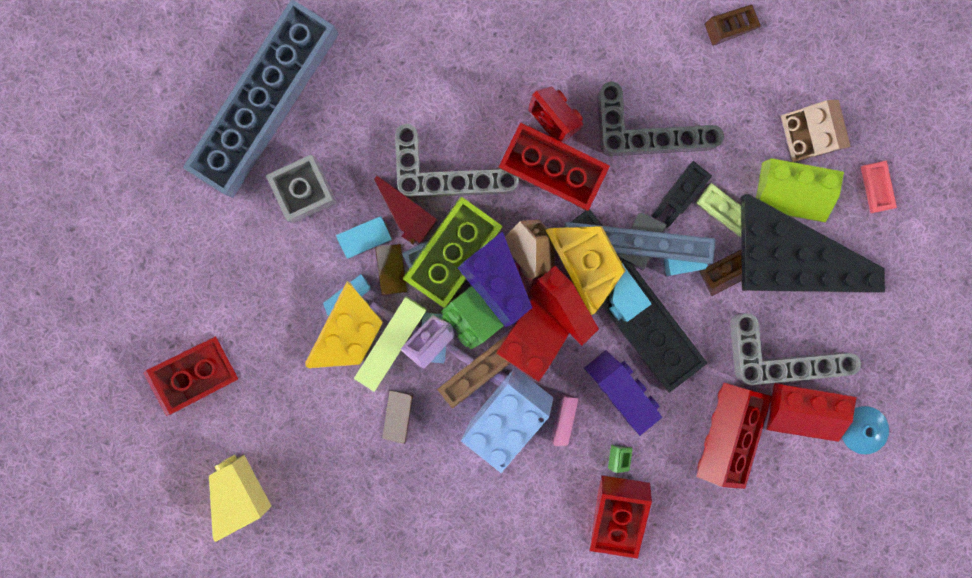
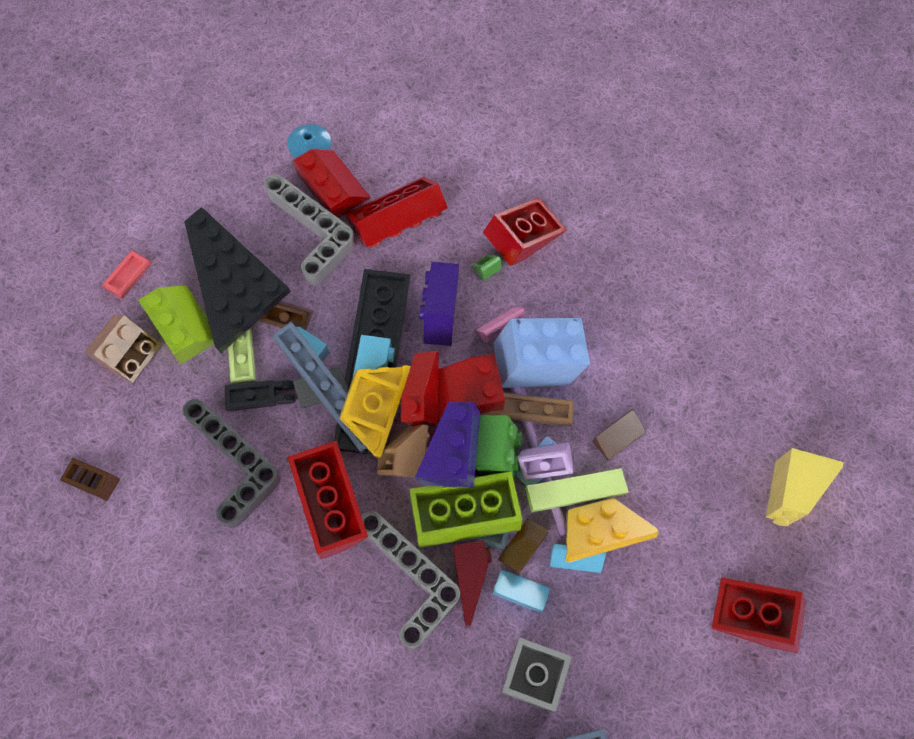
camera: 140 degrees left, 20 degrees down
(554, 114) = (286, 535): red slope -> none

